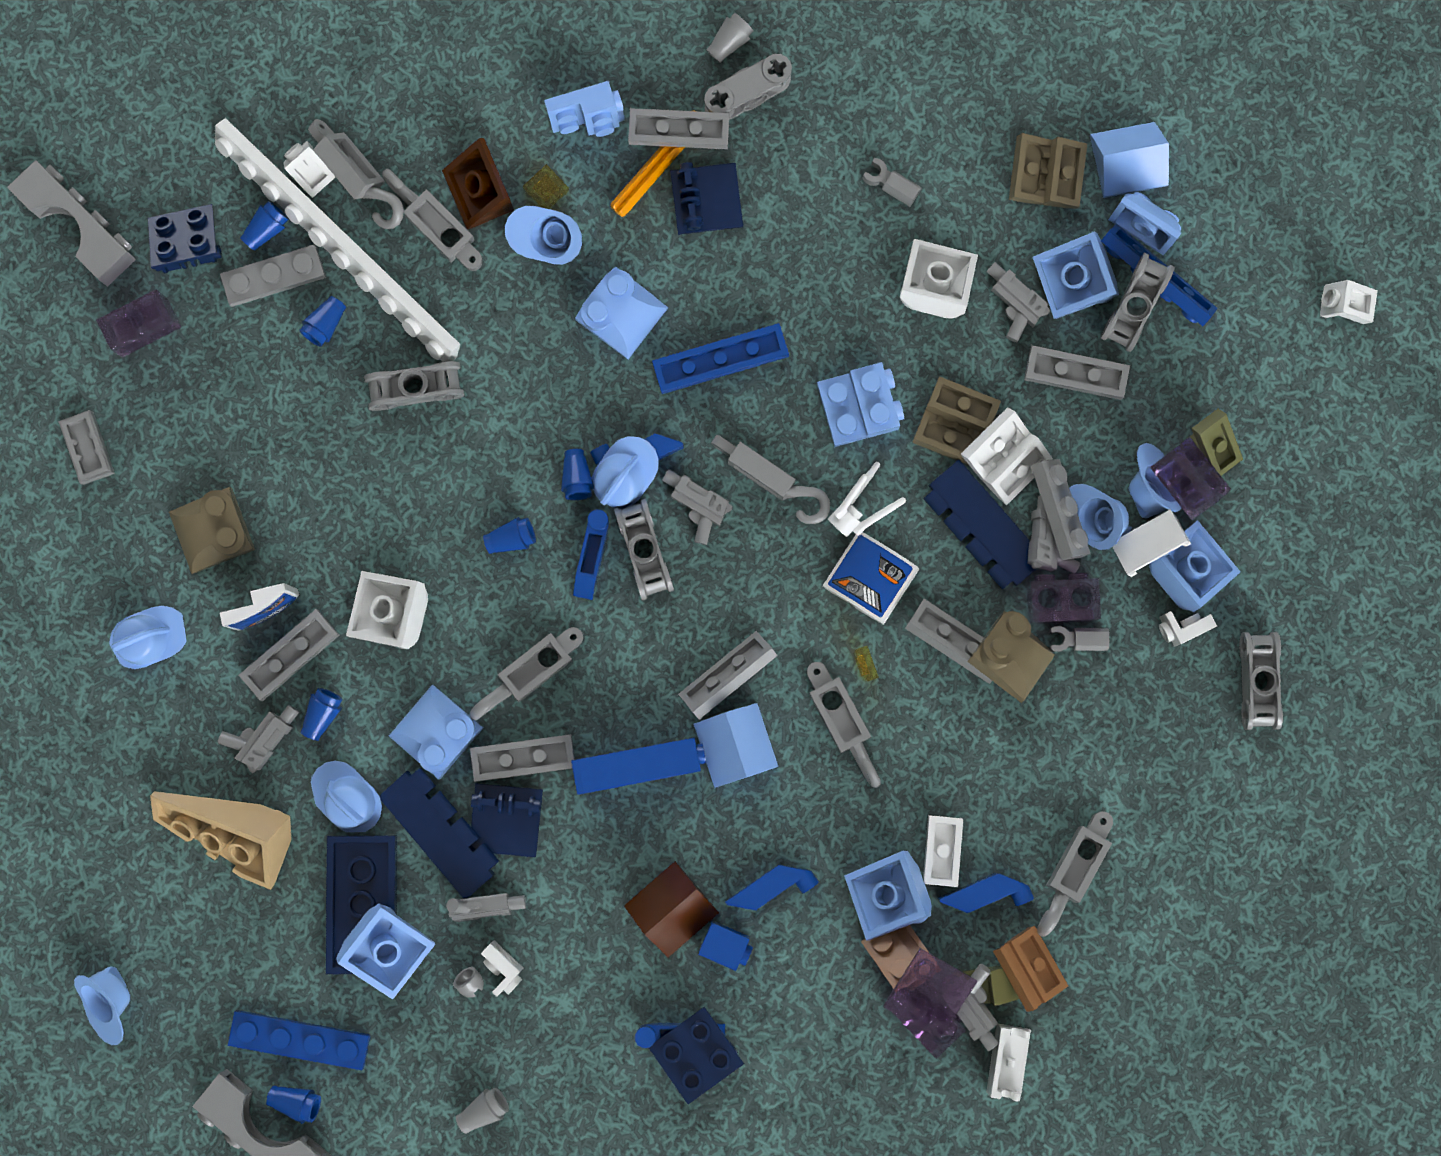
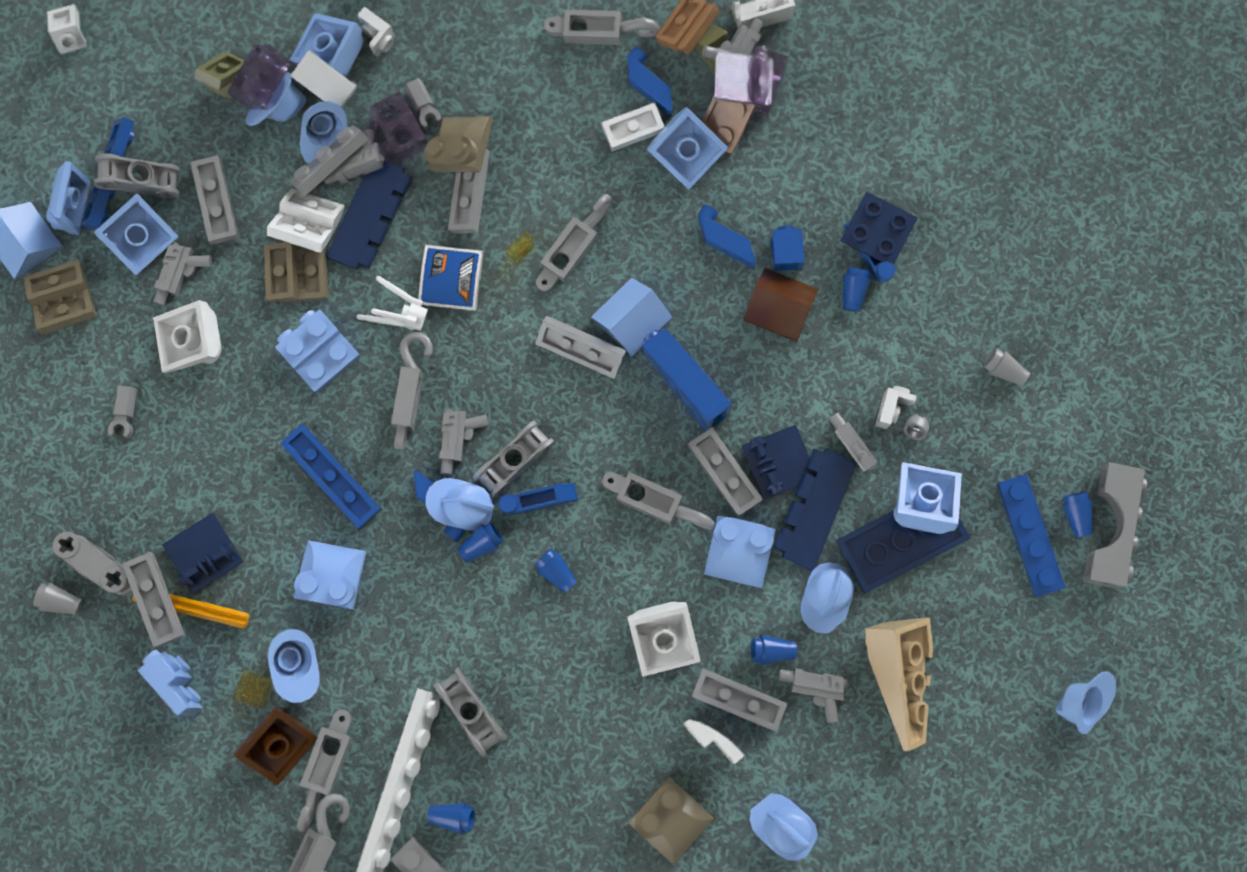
camera: 115 degrees left, 5 degrees down
(647, 996) = (855, 287): none -> blue cone

